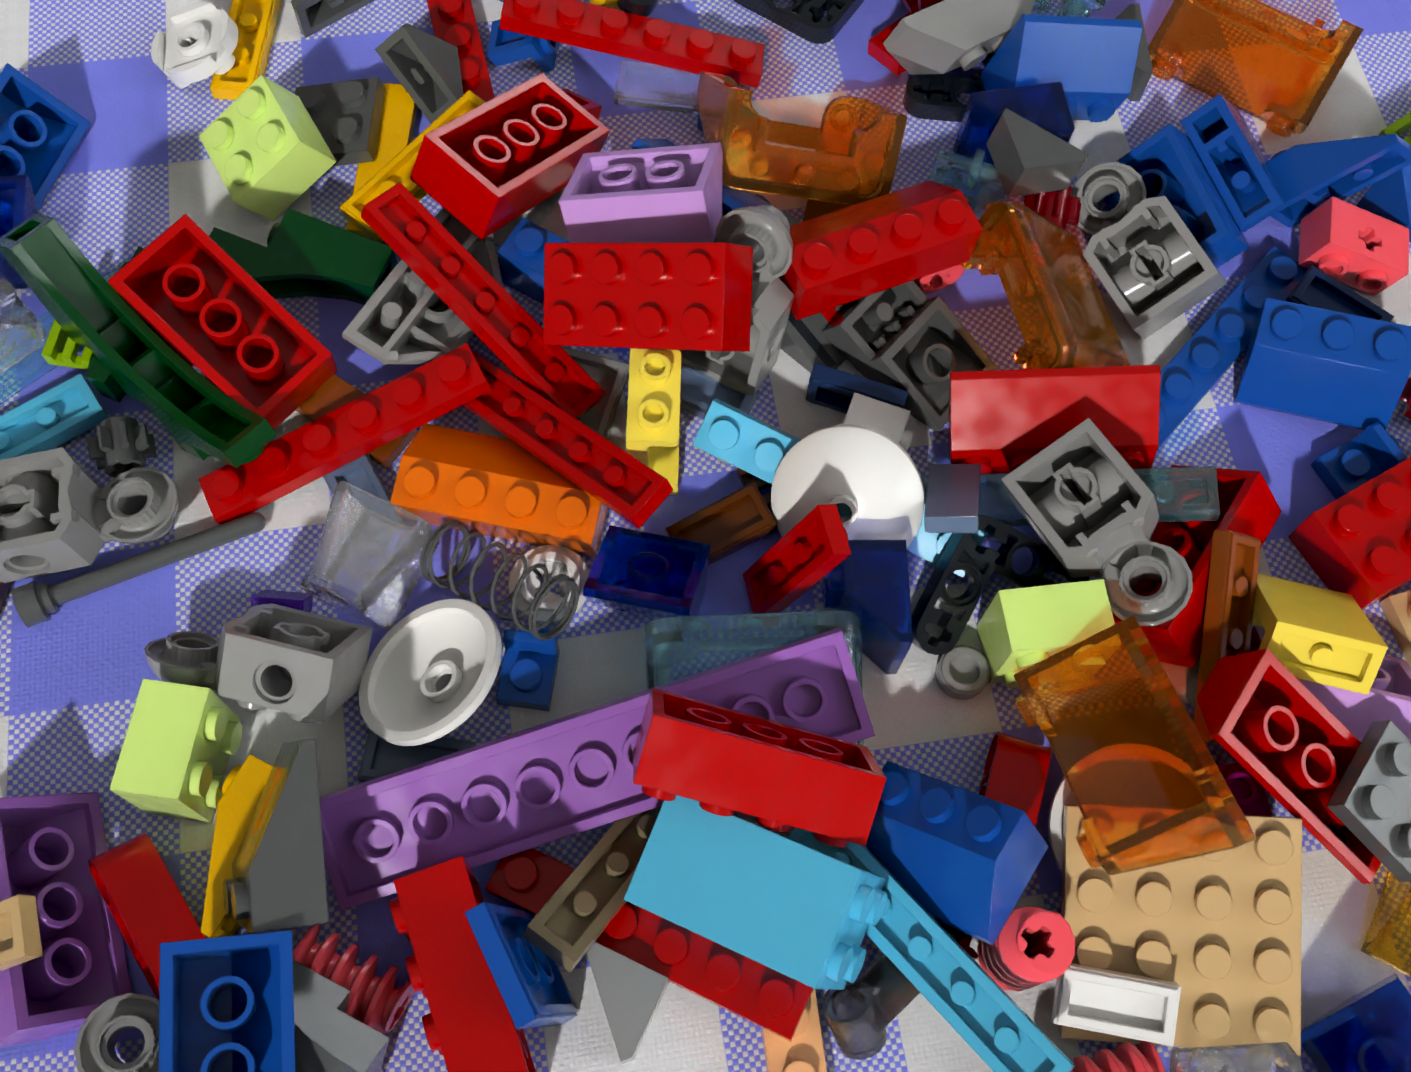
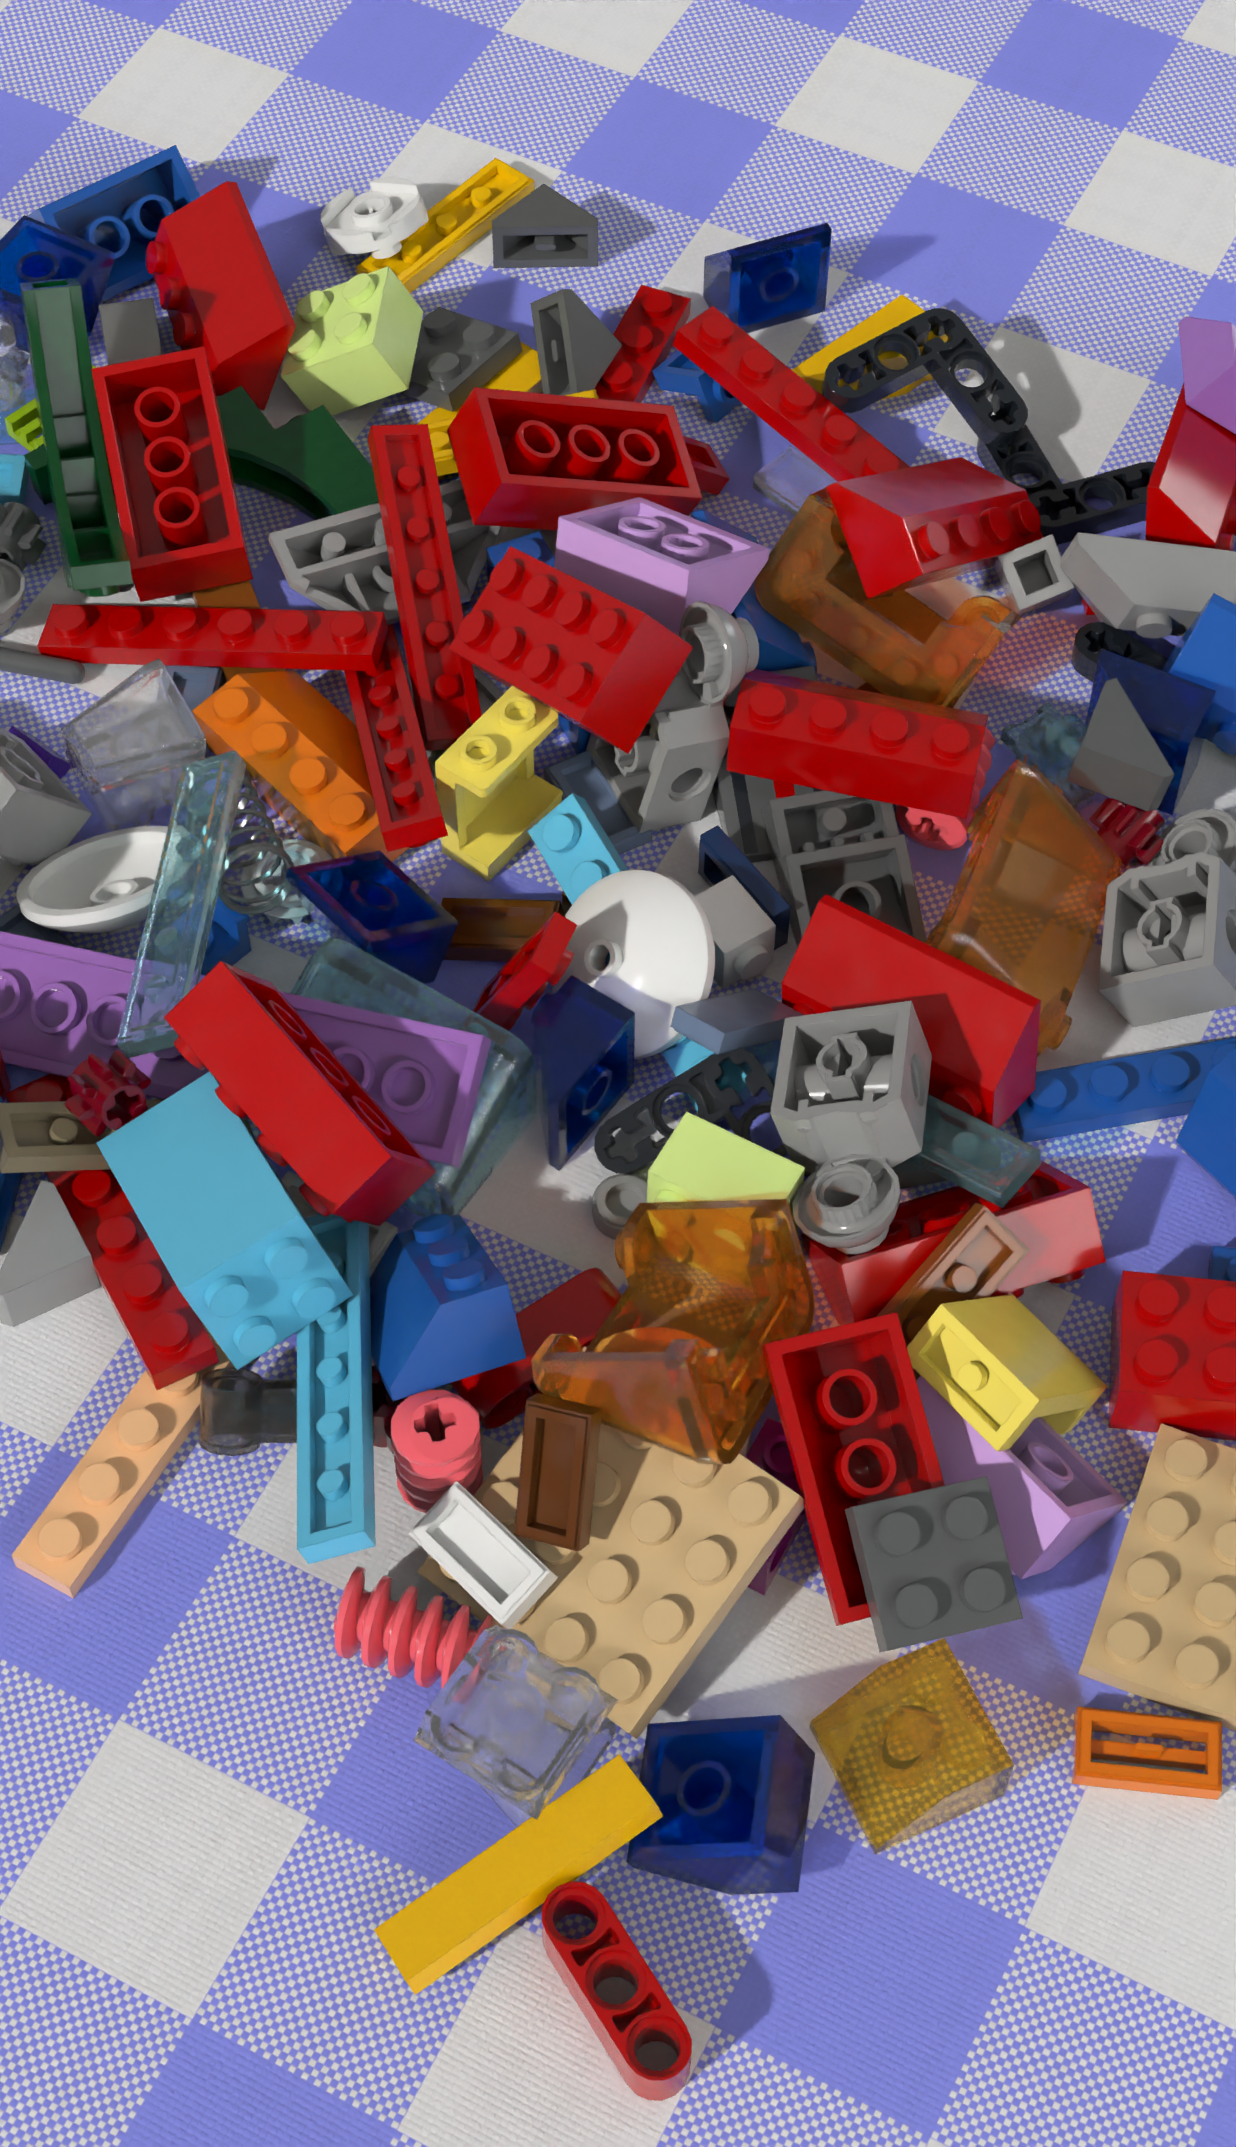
camera: 40 degrees right, 10 degrees down
(97, 237) = (130, 330): none -> dark grey slope
(134, 159) = (222, 291): none -> red slope
(534, 671) = (182, 901): none -> clear light blue tile
(602, 855) = (107, 1092): none -> dark red gear
(791, 64) = (930, 523): none -> red slope
(859, 65) = (1033, 576): none -> light grey brick
(1147, 917) = (557, 1472): none -> reddish brown tile

